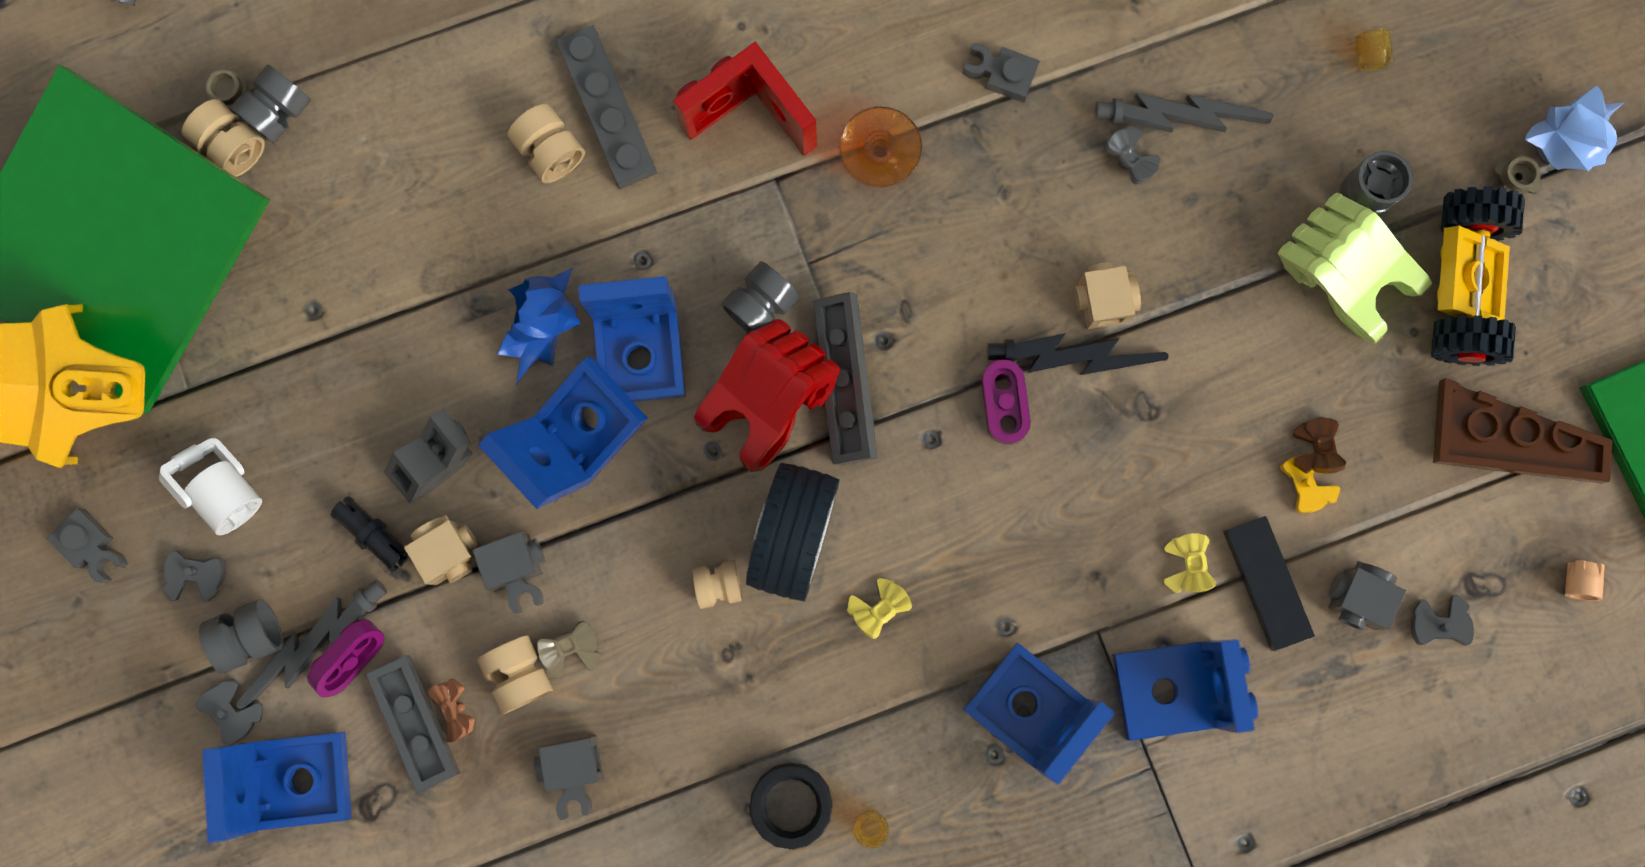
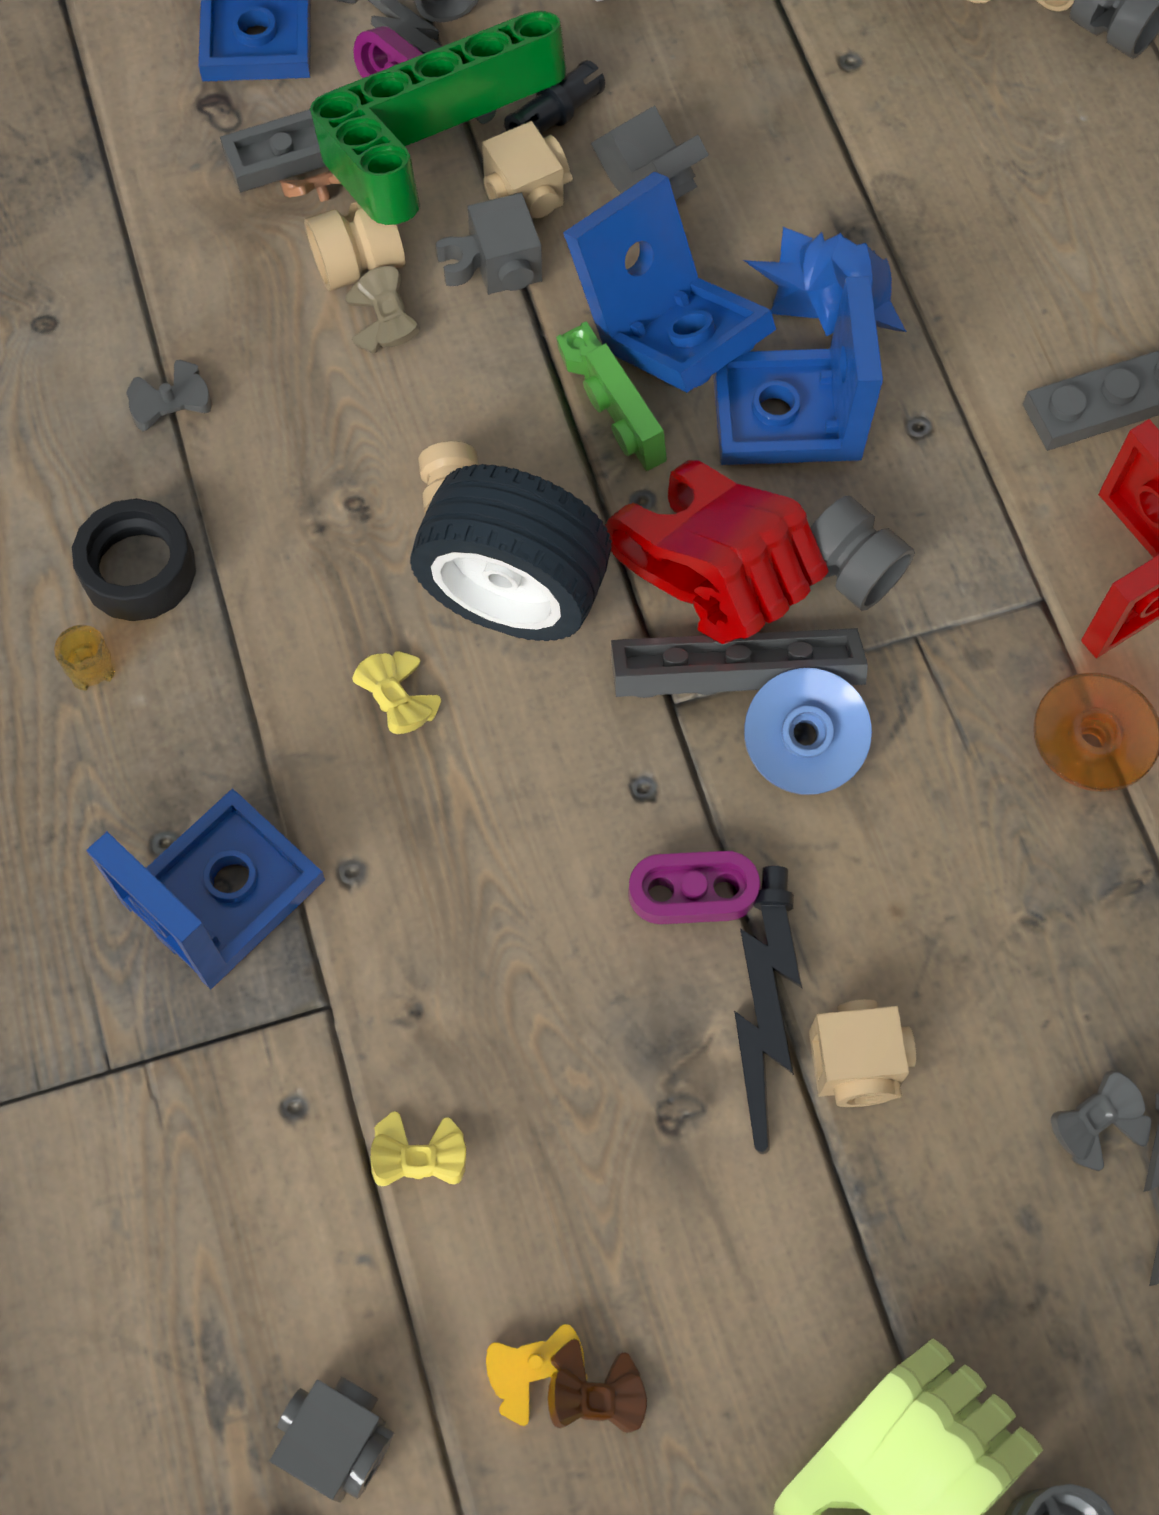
camera: 90 degrees right, 15 degrees down
(400, 629) = (373, 119): none -> green beam
(542, 137) = (1083, 302): tan wheel -> none
(570, 767) = (225, 304): dark grey brick -> none
(633, 476) = (611, 389): none -> bright green hinge
(646, 789) = (187, 393): none -> dark grey piece
(908, 320) = (830, 708): none -> medium blue dish
(1206, 685) = (212, 1149): blue bracket -> none
(1269, 583) = (373, 1281): black tile -> none

